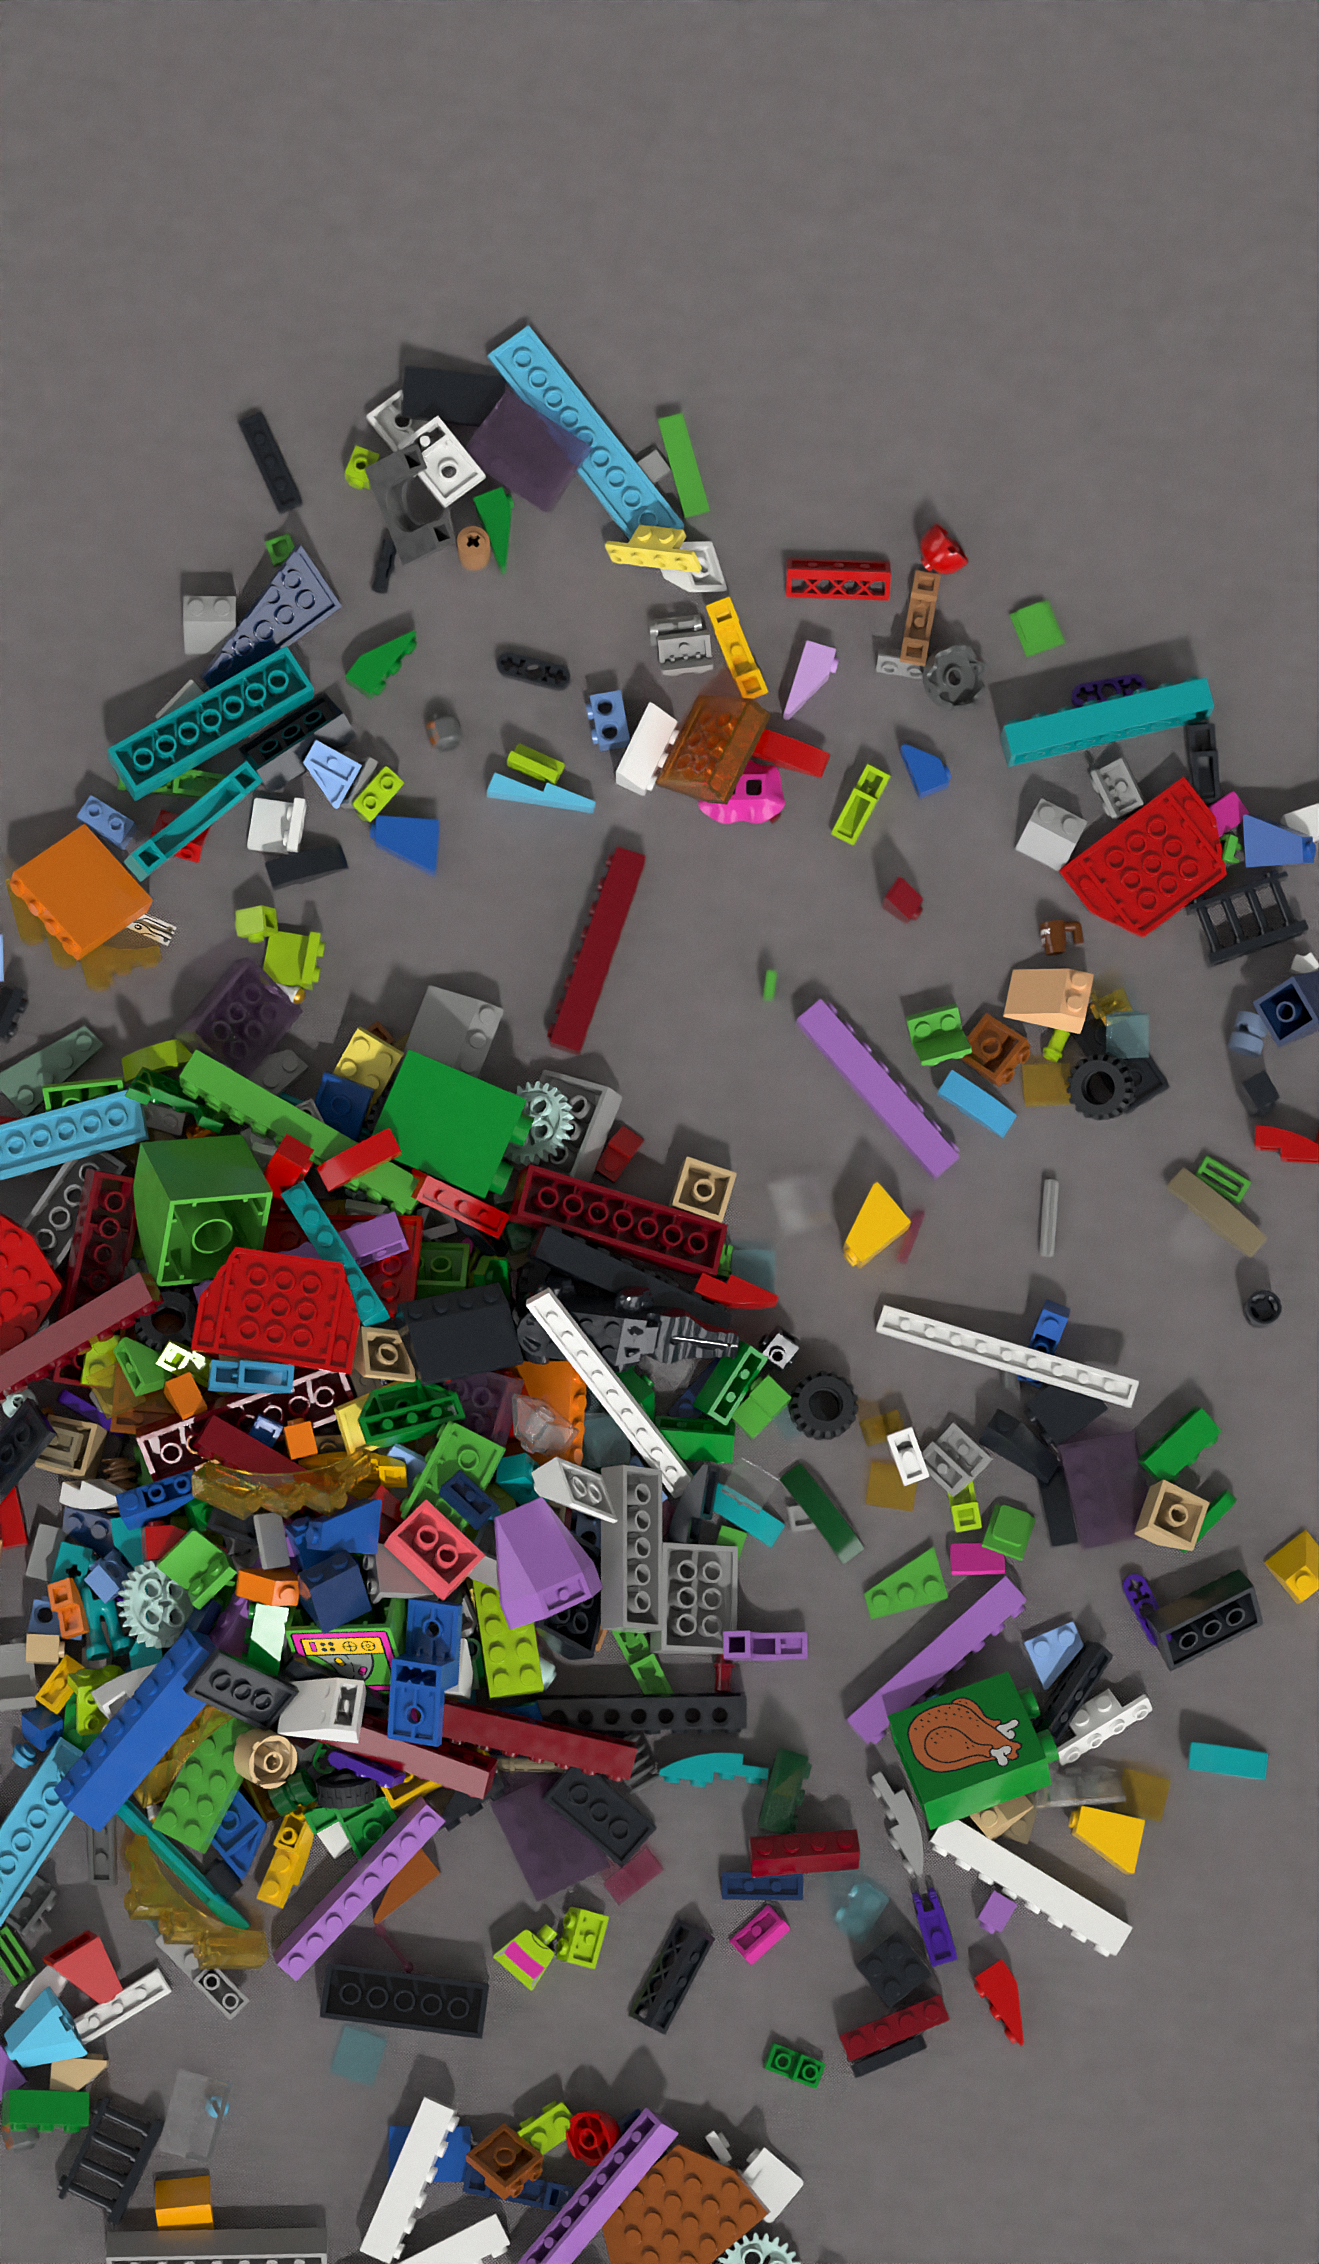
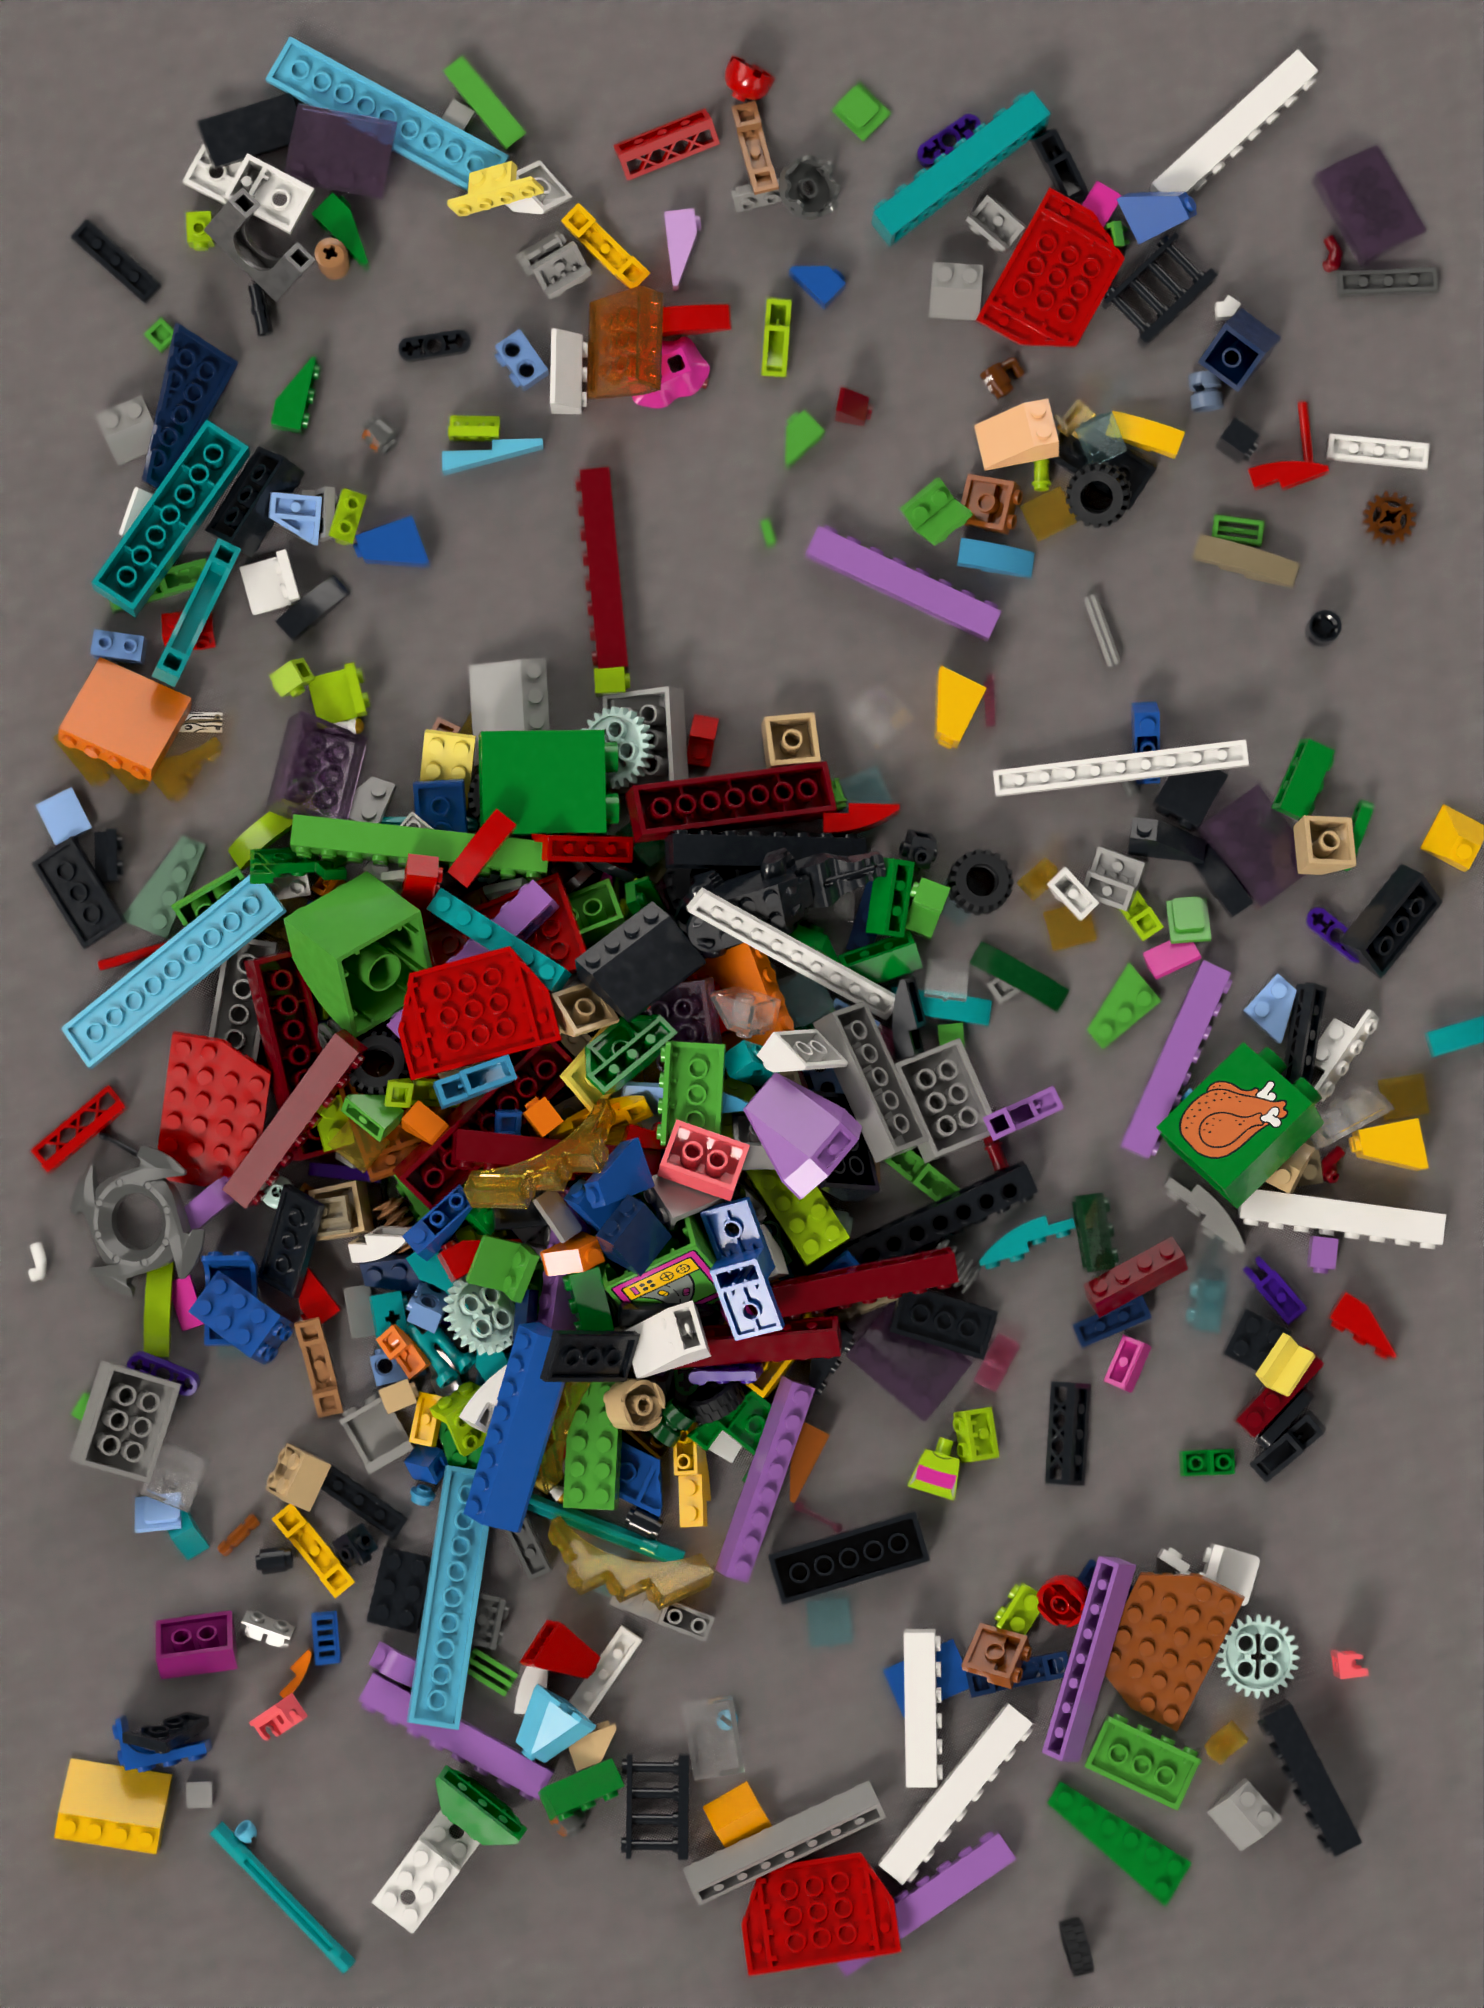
camera: 25 degrees left, 5 degrees up
(468, 1499) = (713, 1103): dark blue slope -> none
(557, 1059) = (611, 681): none -> lime brick
(842, 908) = (801, 436): none -> bright green slope
(879, 2085) = (1288, 1446): none -> black slope
(909, 2003) = (1284, 1365): none -> light yellow panel
(1041, 1829) = (1329, 1165): none -> dark red arm
(1176, 1051) = (1149, 434): none -> yellow slope

